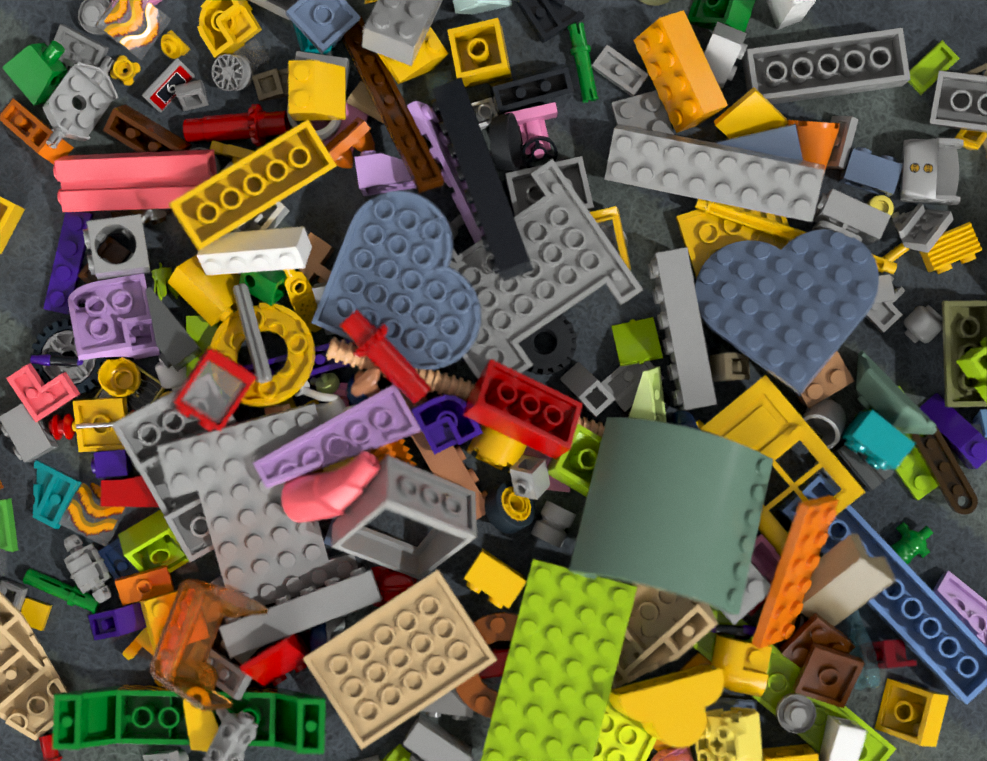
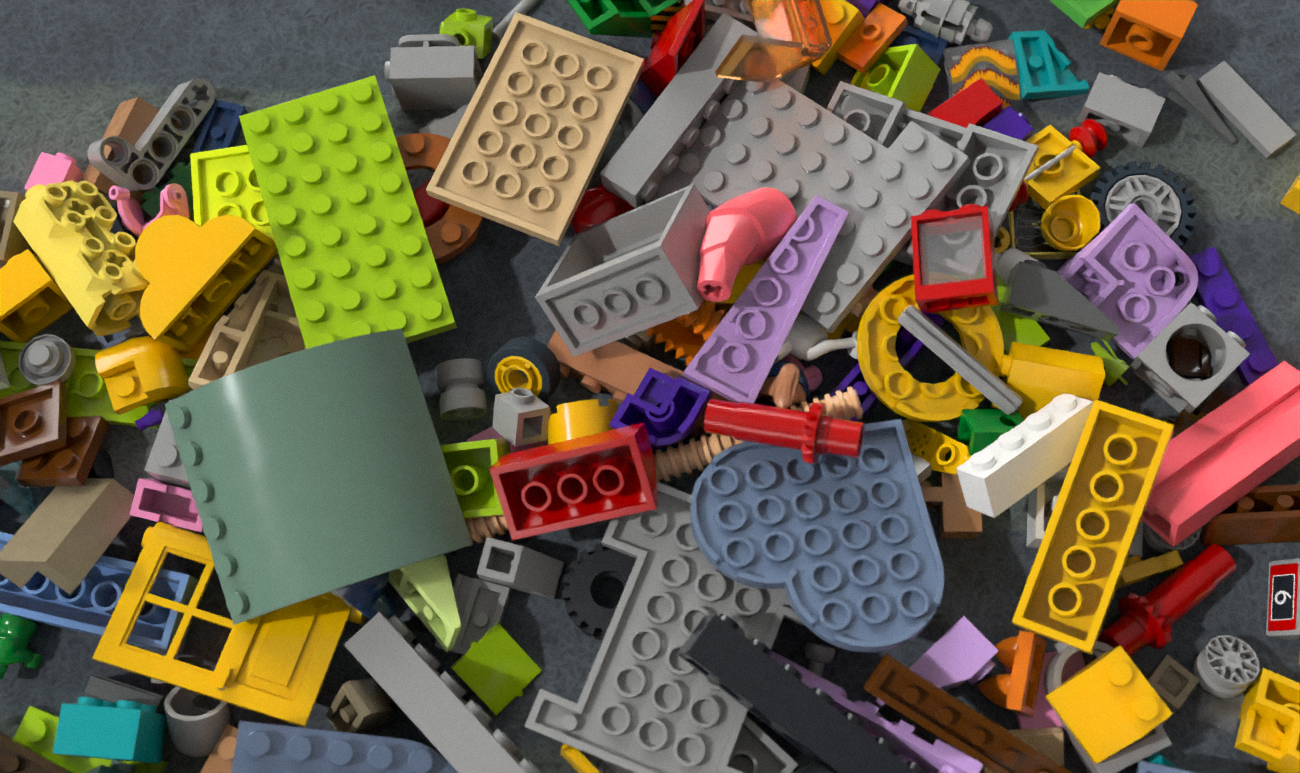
camera: 145 degrees right, 15 degrees down
(39, 397) = (1142, 143): coral plate -> none
(55, 359) = (1159, 193): piece -> none
(191, 95) = (1251, 606): light grey brick -> none
(326, 383) = (831, 373): yellowish green piece -> none
(495, 579) = (488, 284): yellow brick -> none
(795, 570) = (130, 511): orange plate -> none

